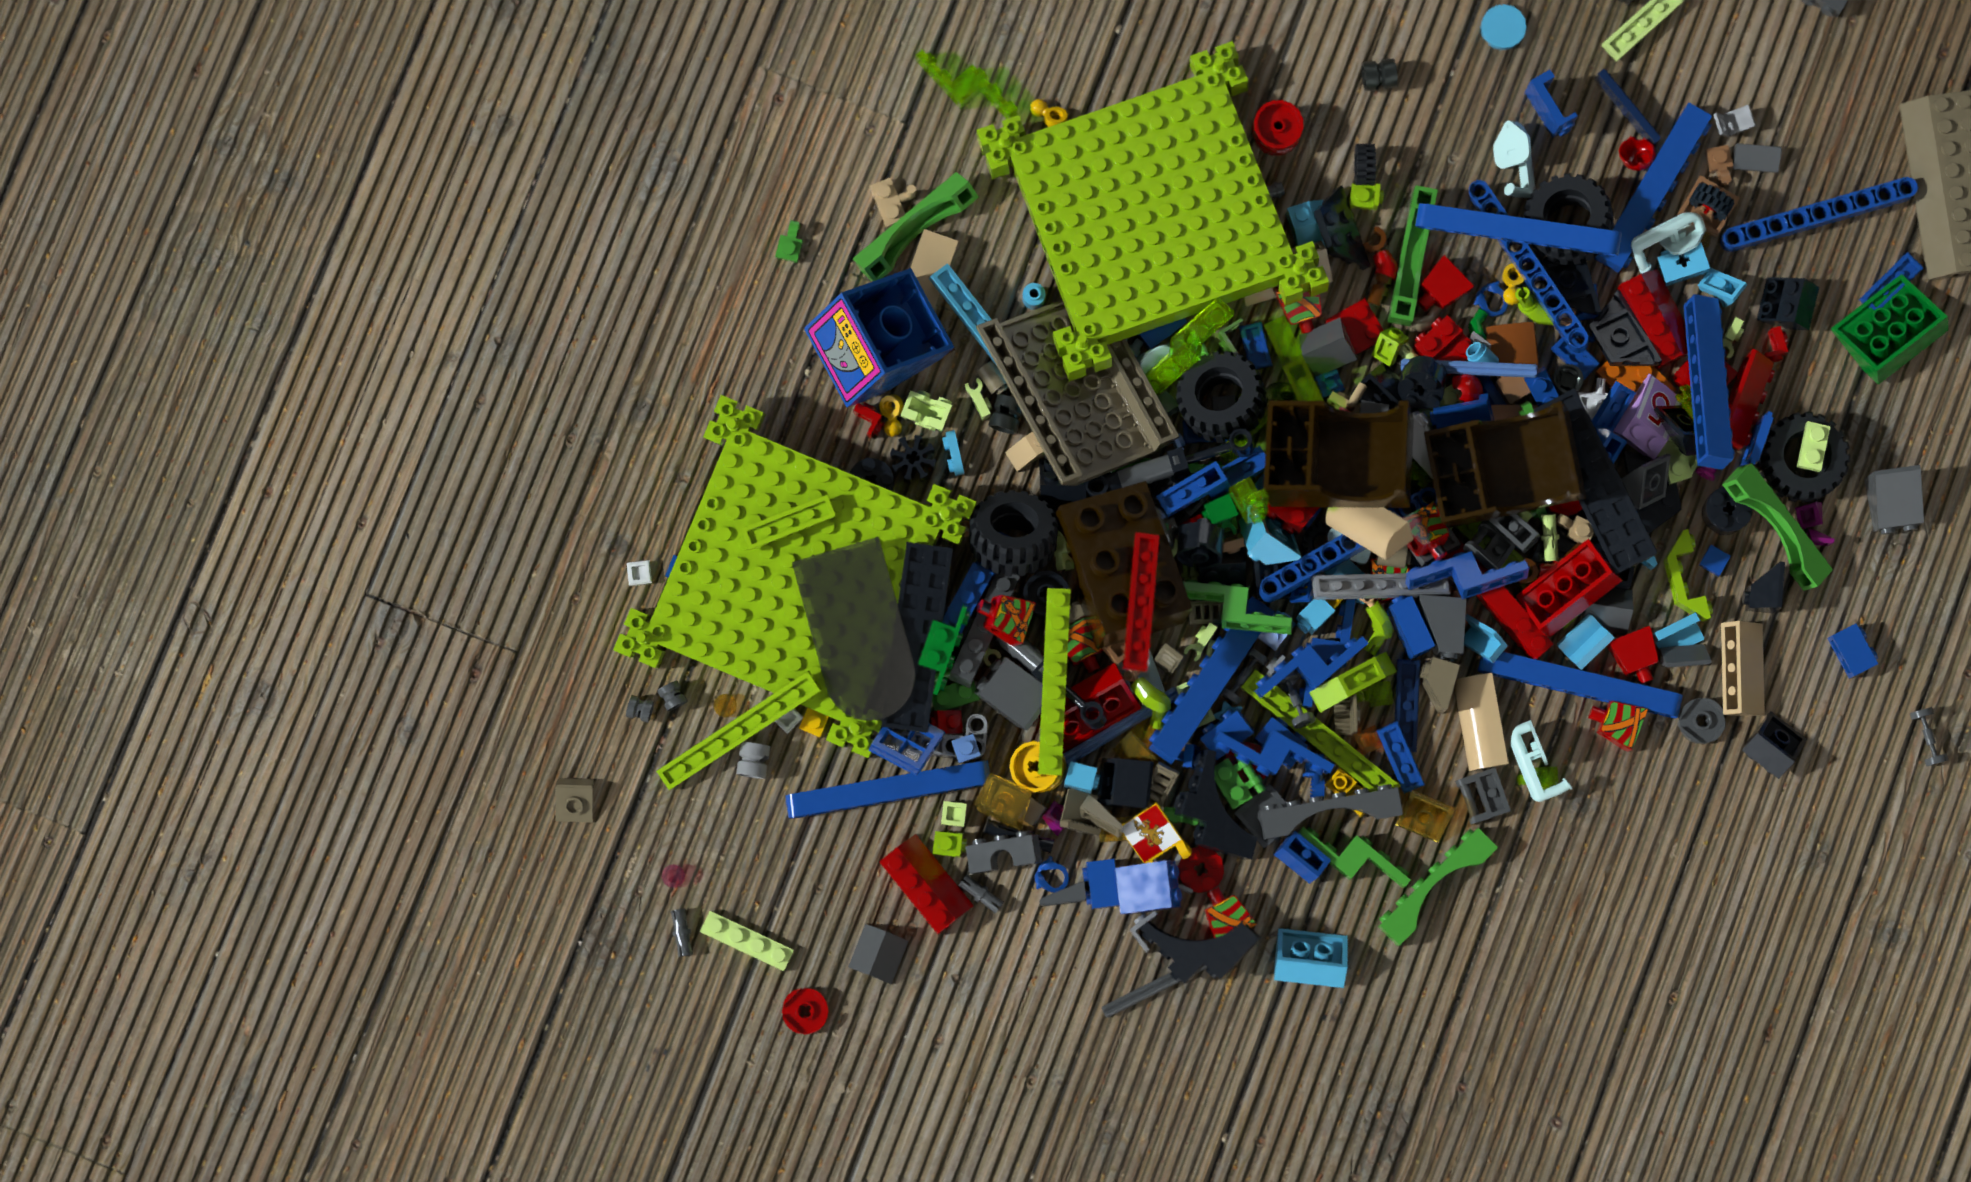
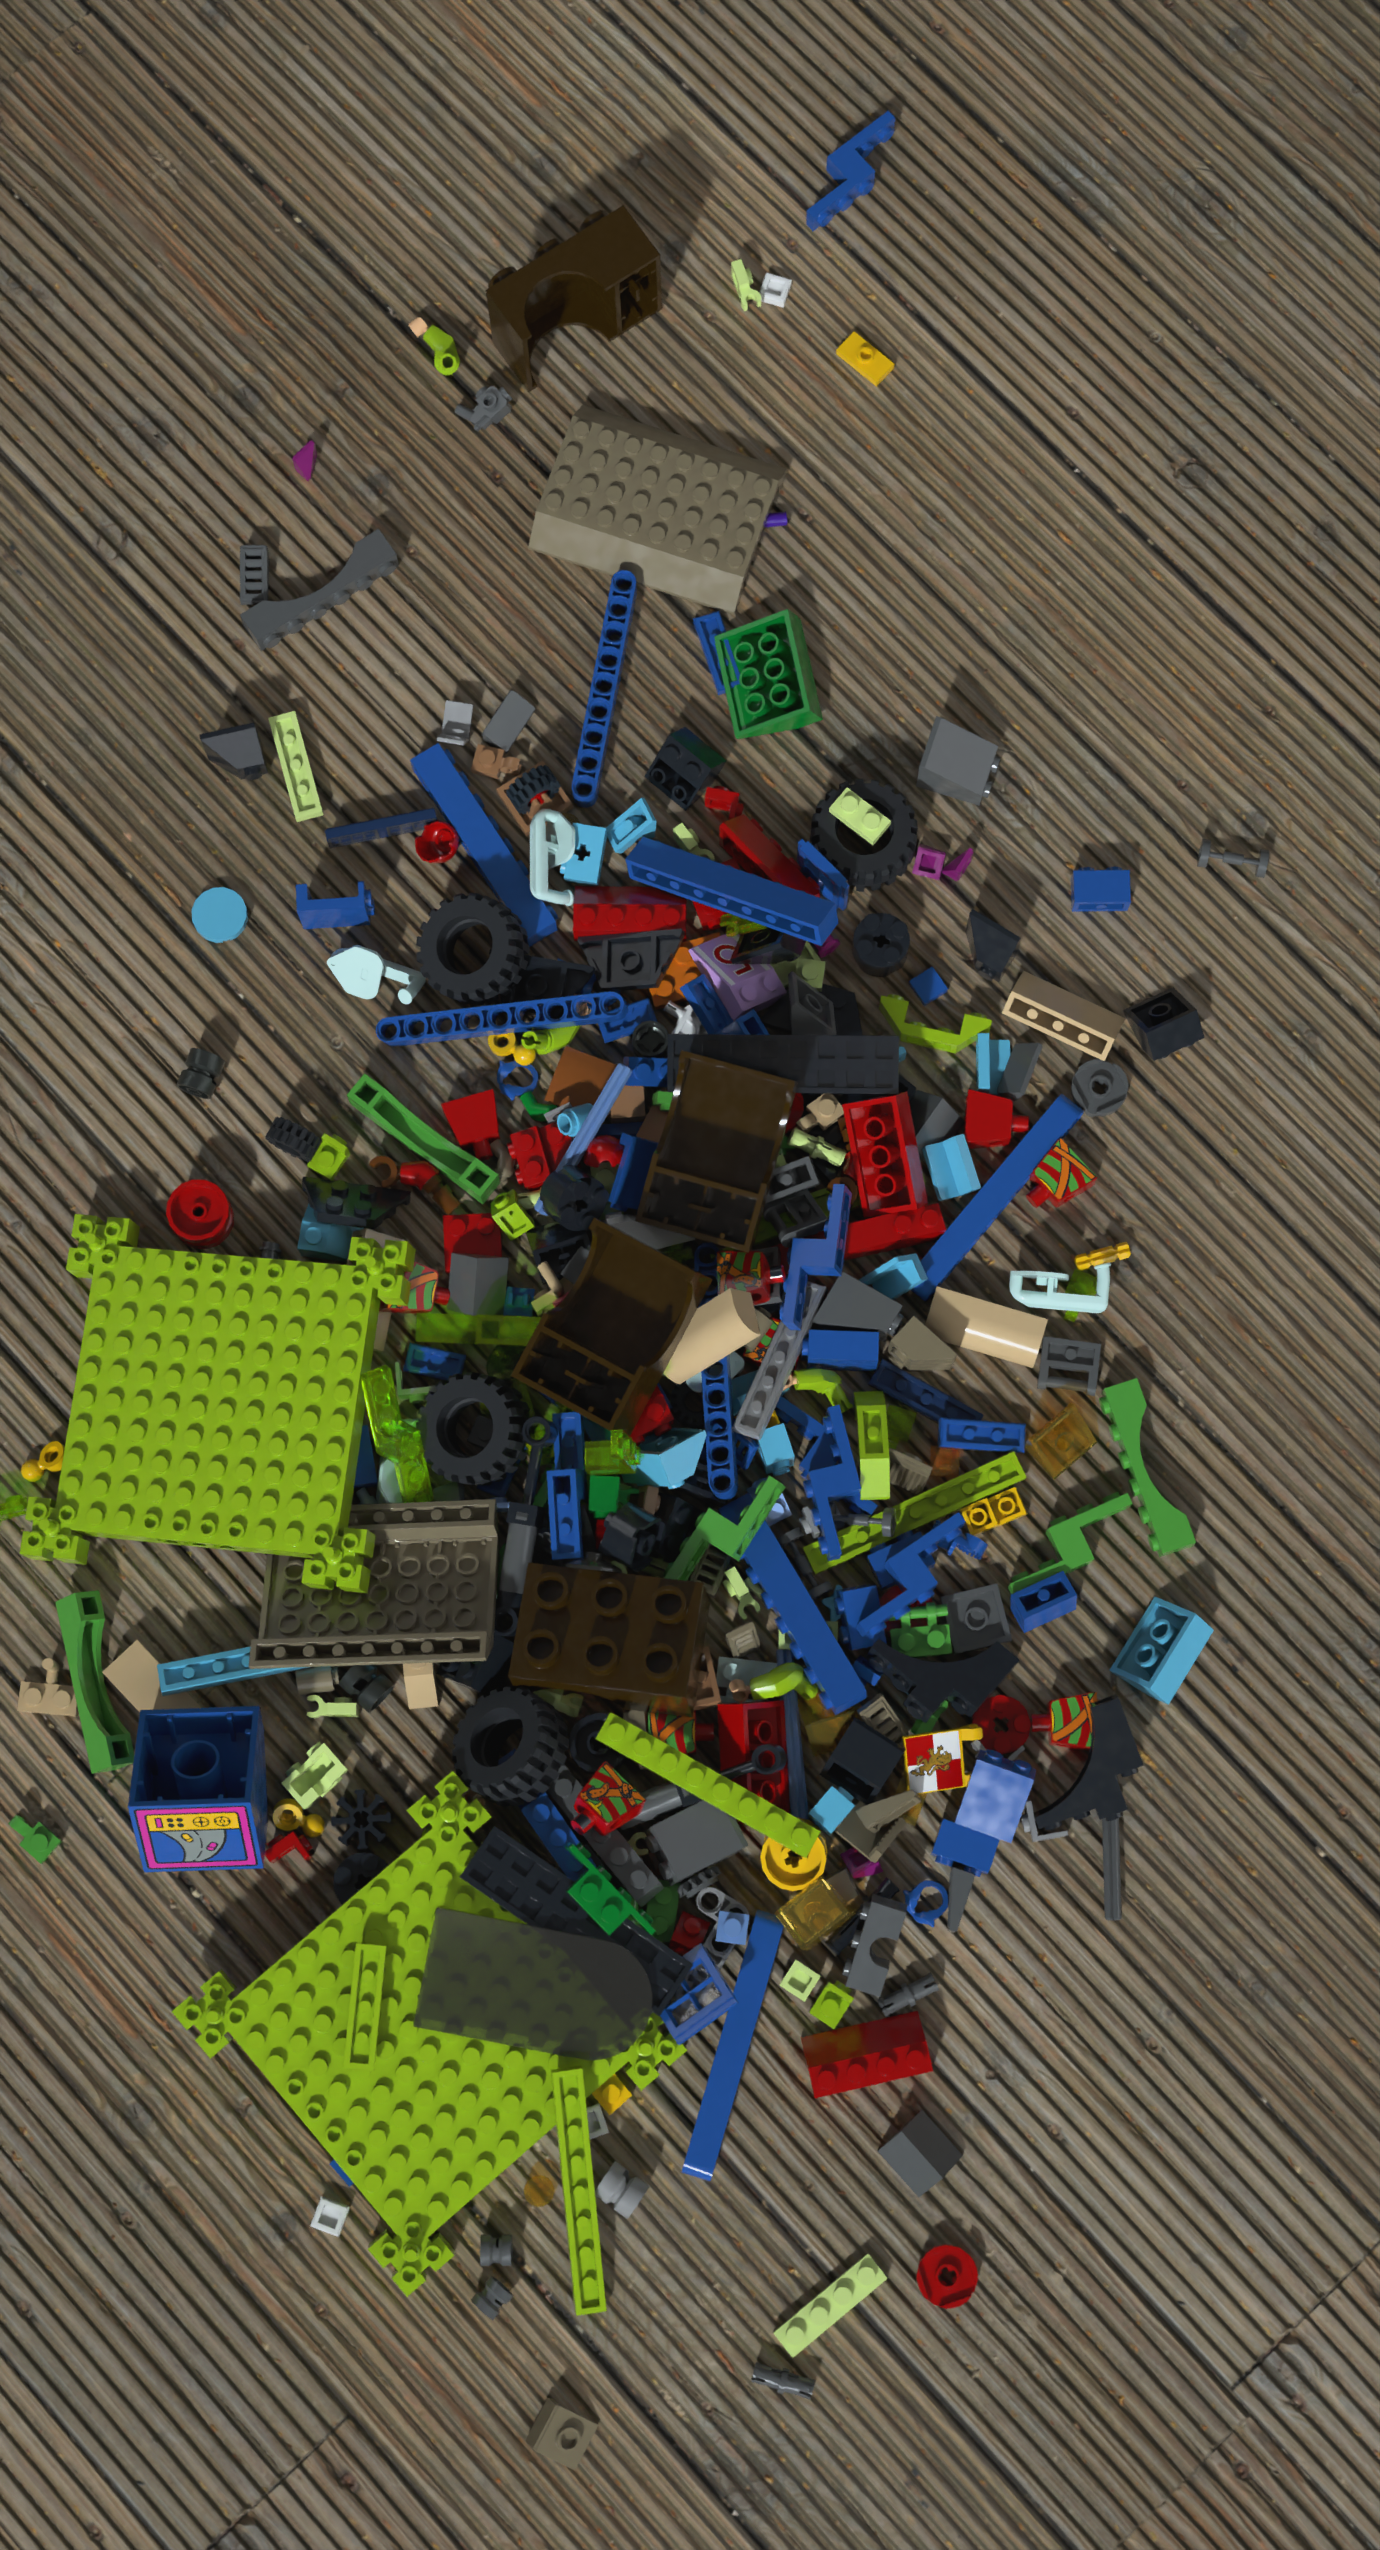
camera: 60 degrees left, 5 degrees down
(673, 876) = (710, 2357): clear pink plate -> none
(955, 463) = (367, 1766): medium azure plate -> none
(985, 710) = (699, 1882): none -> dark grey gear
(1030, 302) = (254, 1589): medium azure brick -> none
(1141, 602) = (670, 1637): red plate -> none
(1378, 804) = (992, 1601): dark grey arch -> none
(1518, 229) = (457, 1006): blue beam -> none
(1576, 782) = (1102, 1255): none -> yellow axle
(1804, 559) = (979, 890): bright green arch -> none

